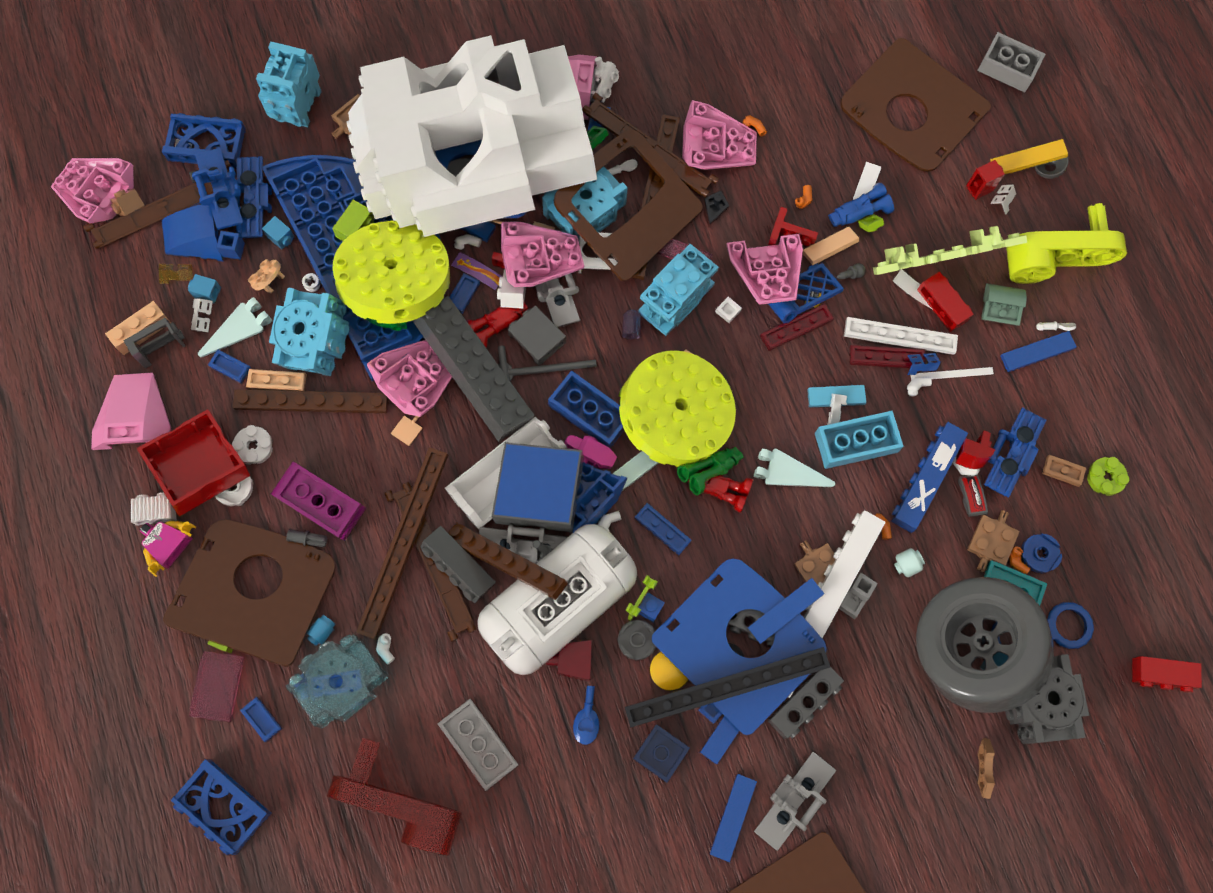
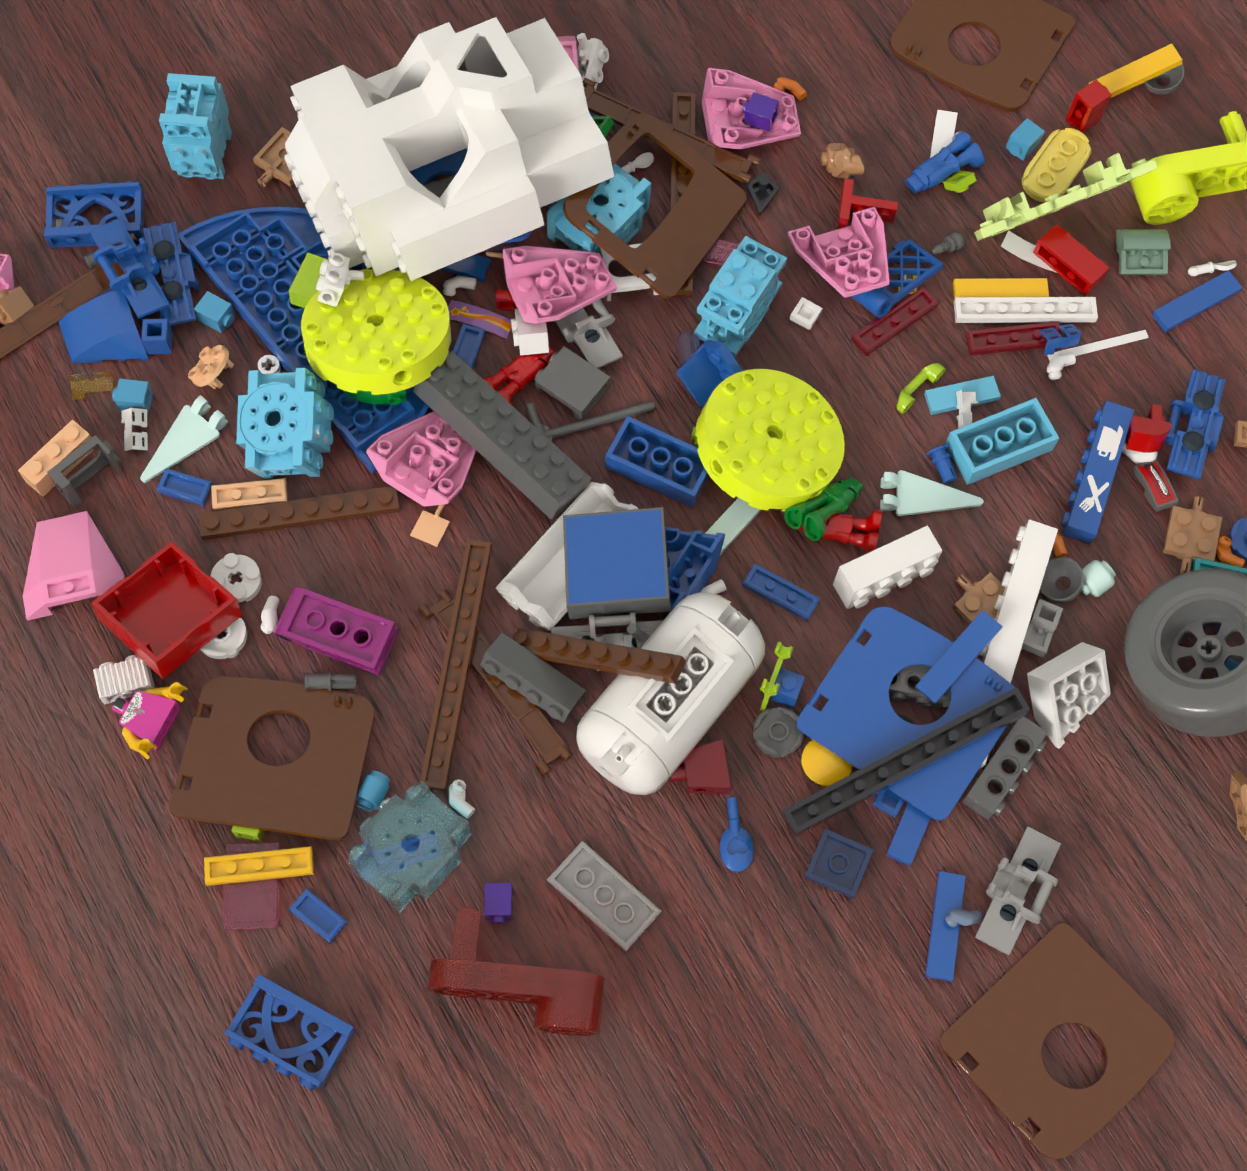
camera: 10 degrees left, 5 degrees down
(223, 673) = (258, 866): none -> yellow tile
(270, 479) = (269, 615): none -> white arm
(367, 221) = (335, 276): none -> white brick
(396, 736) = (498, 902): none -> dark purple brick
(593, 451) = (677, 510): dark pink hinge -> none
(641, 343) = (707, 369): none -> blue bracket
(726, 142) = (761, 111): none -> dark purple brick
(747, 526) = (887, 568): none -> white brick
(747, 815) = (963, 917): none -> sand blue arm
(782, 191) = (842, 161): none -> medium nougat head
(806, 199) = (873, 164): orange arm -> none
(809, 448) = (943, 463): none -> blue pin
(817, 374) = (932, 372): none -> lime bar
(830, 245) = (916, 216): light nougat tile -> none
(868, 648) = (1068, 690): none -> white wedge
(880, 550) = (1056, 570): none -> dark grey piece
(885, 315) = (1001, 287): none -> yellow tile
(929, 197) = (1025, 139): none -> dark azure brick
(950, 221) = (1056, 164): none -> light yellow tile
(1008, 198) = (1121, 124): white piece -> none

